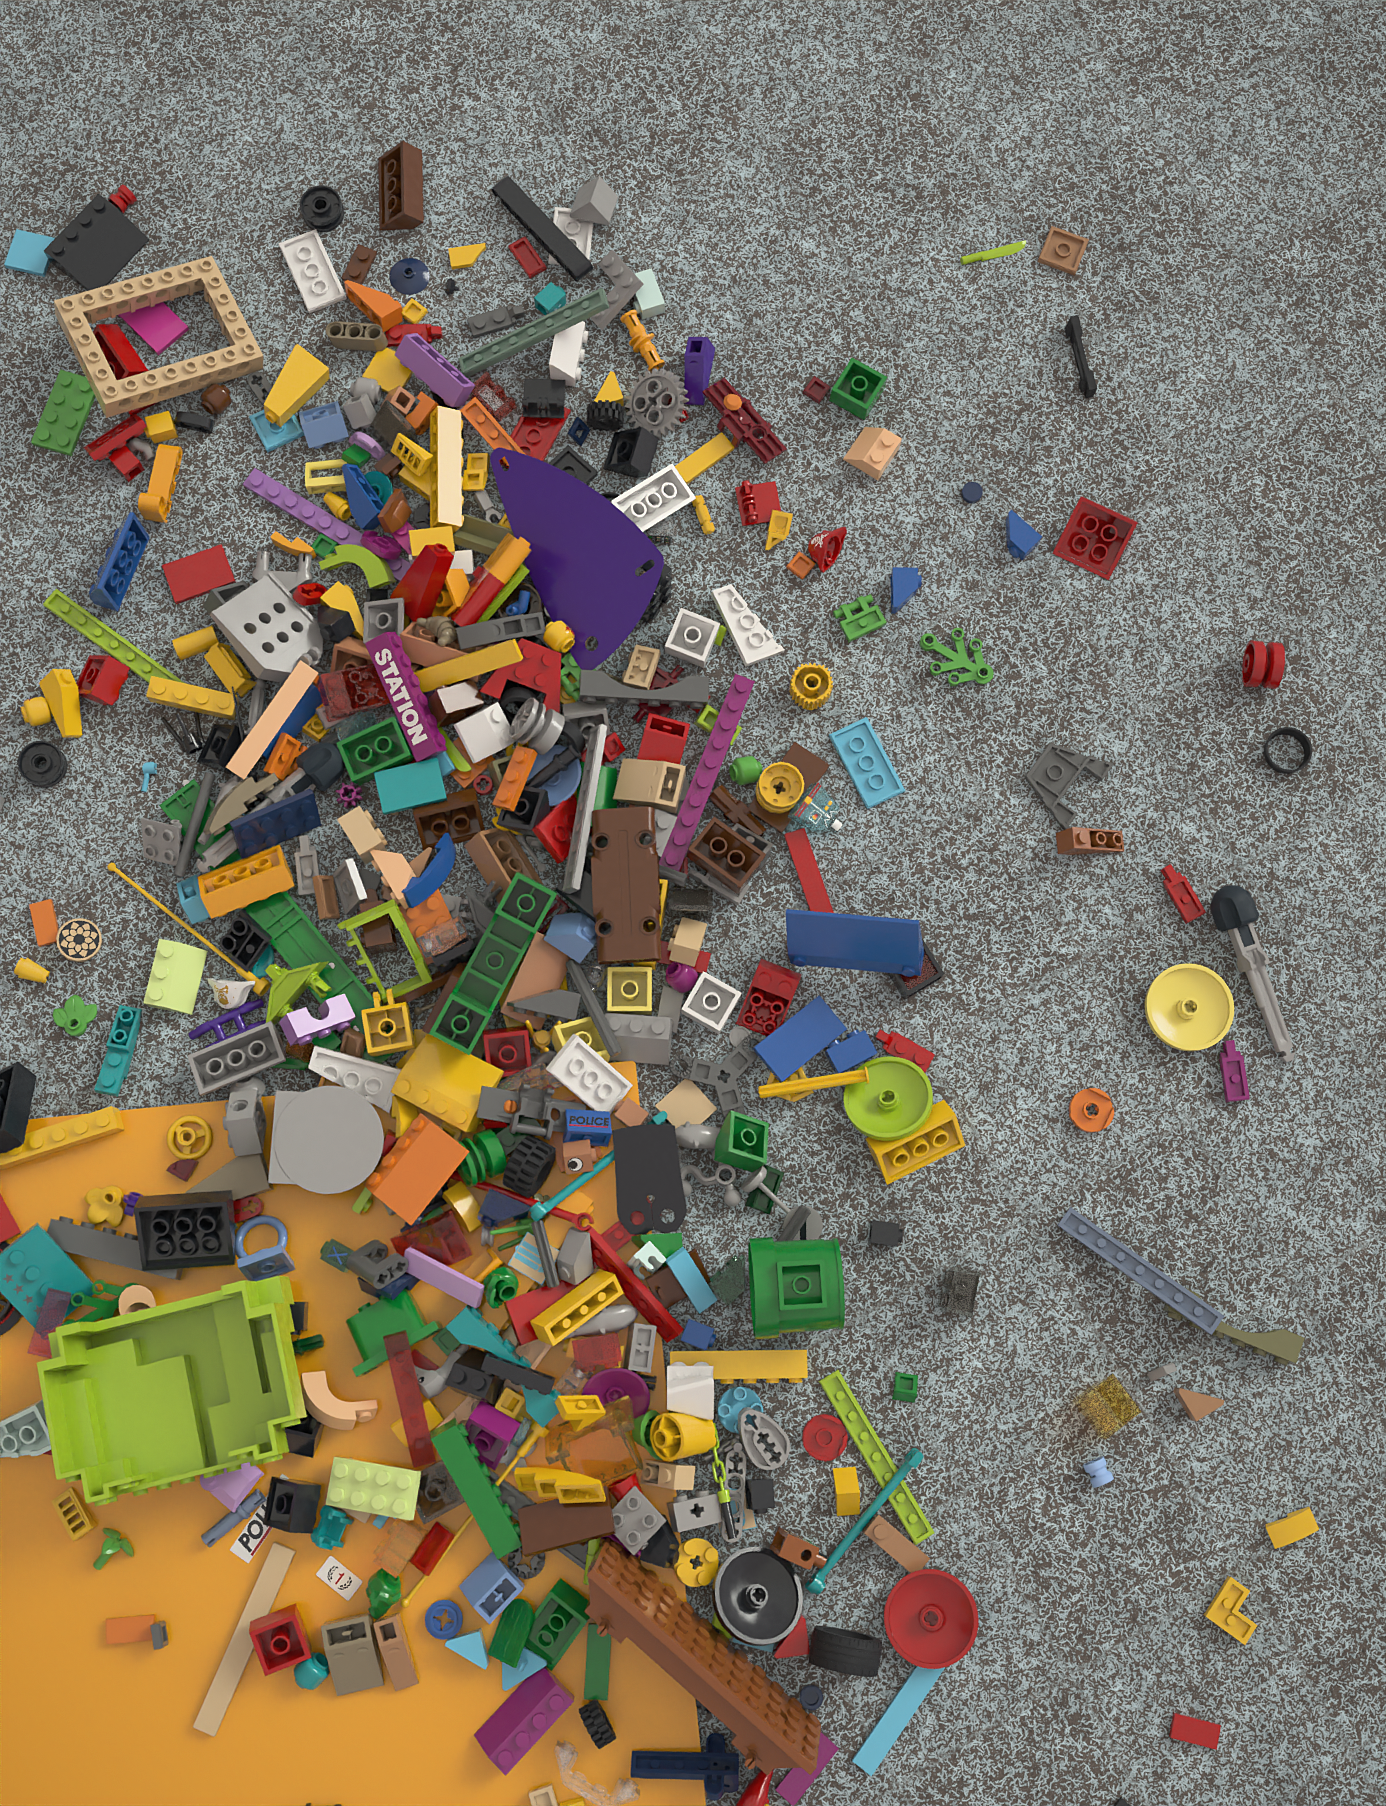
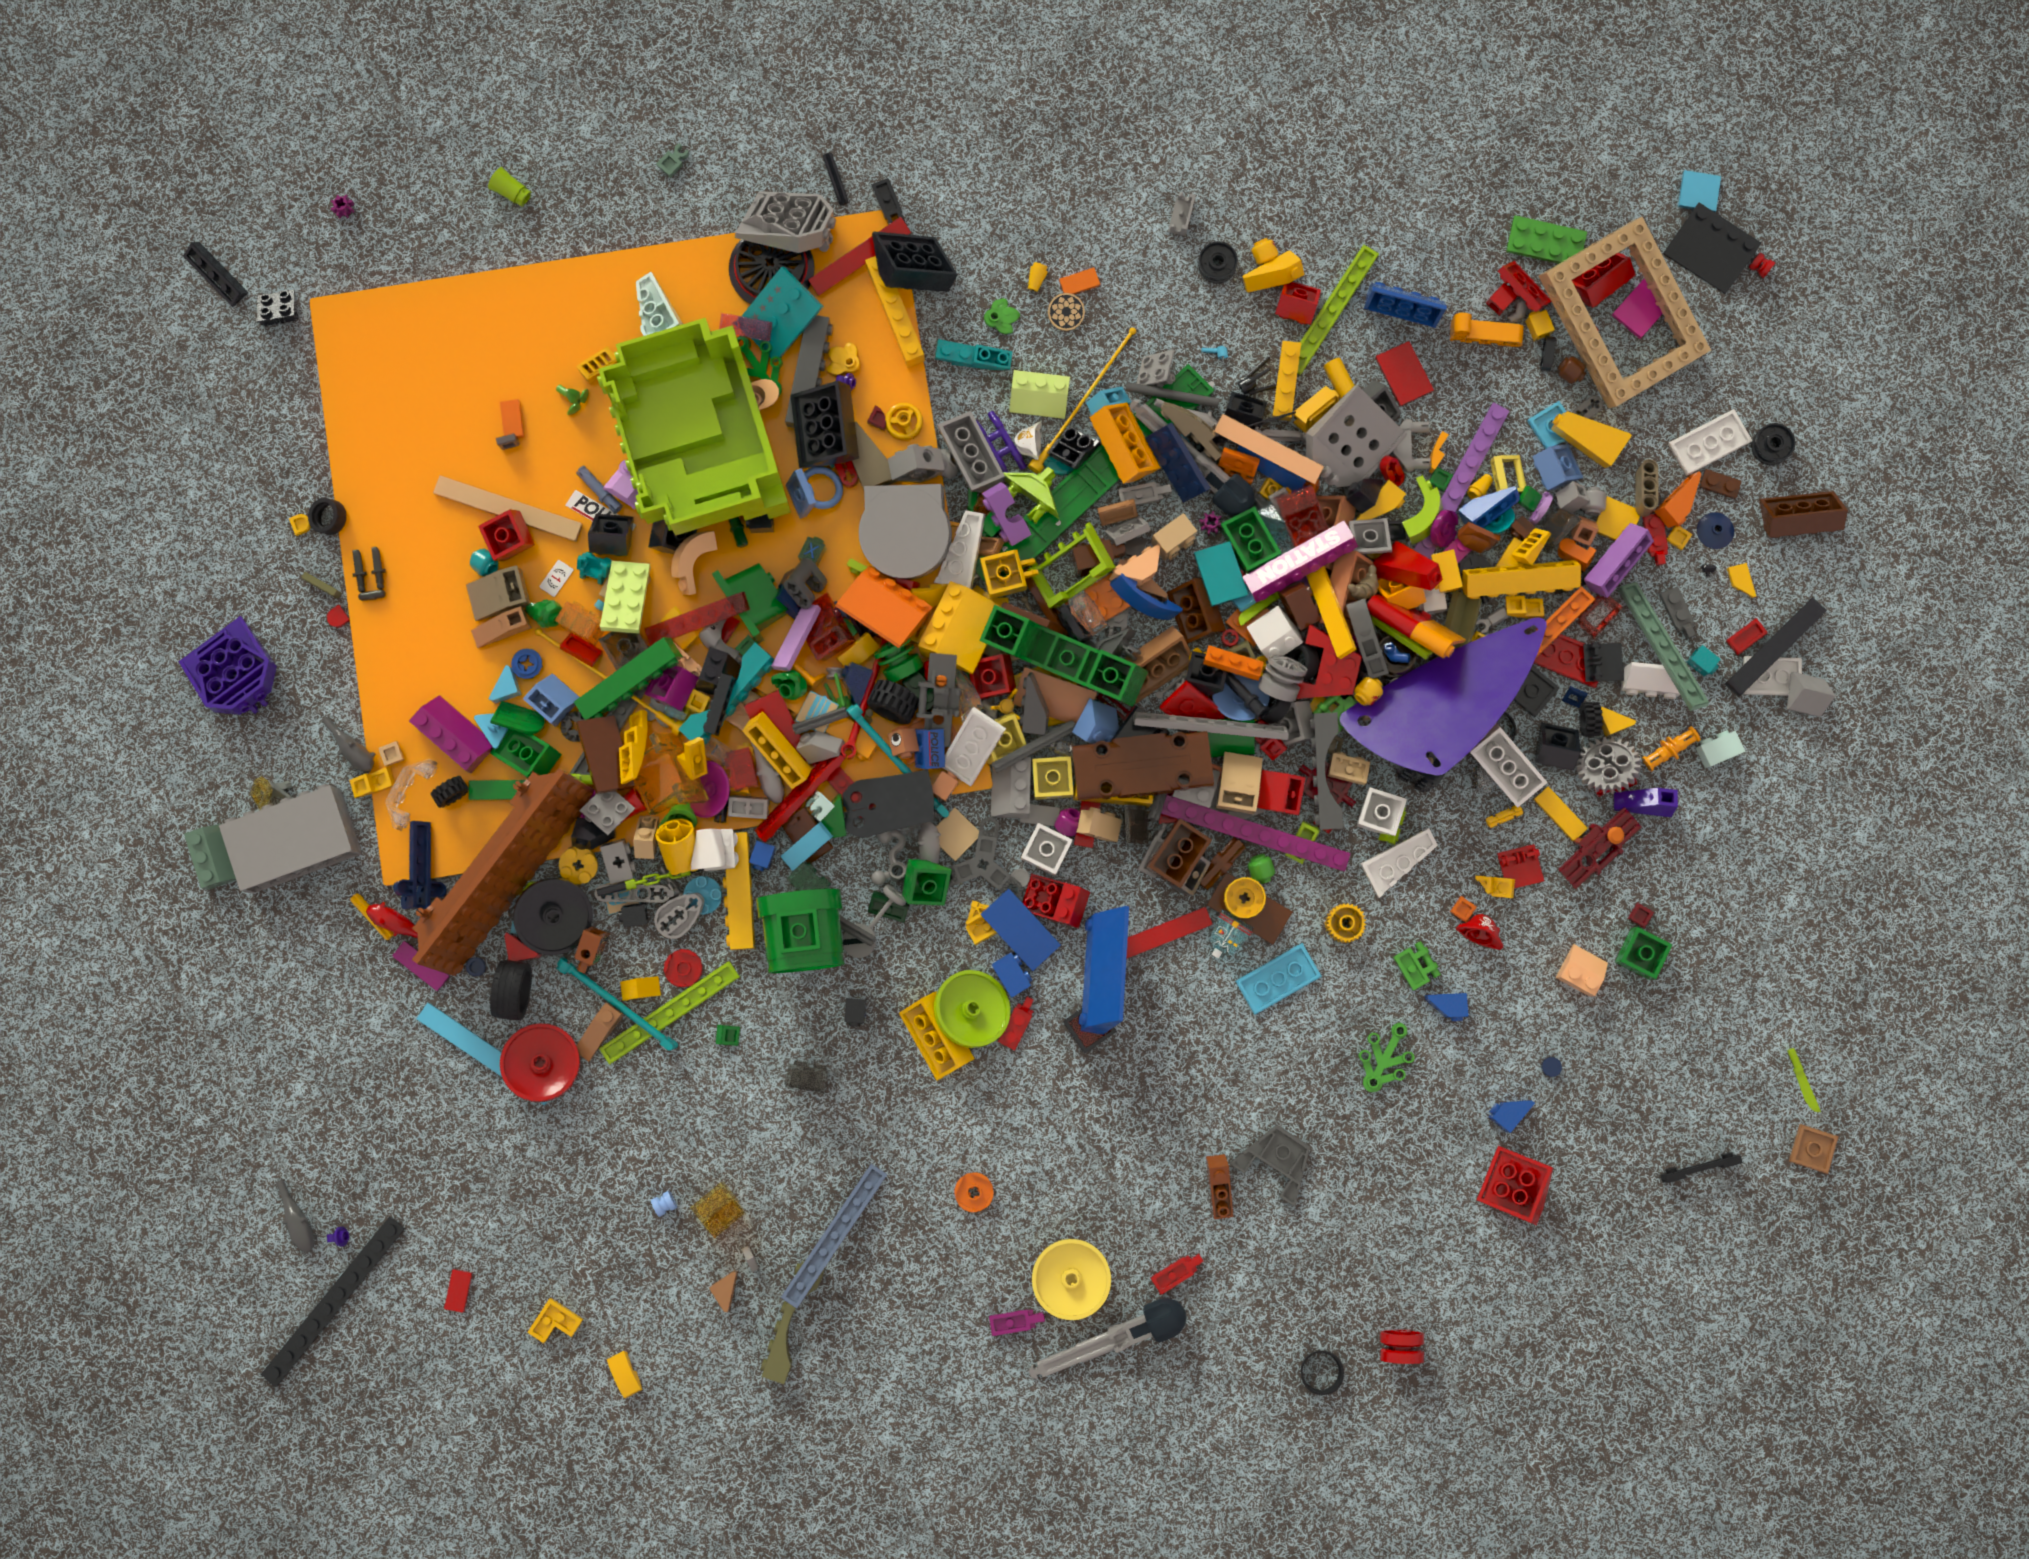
camera: 90 degrees right, 5 degrees up
(626, 286) = (1726, 728): light grey plate -> none
(814, 1083) = (981, 943): yellow axle -> none

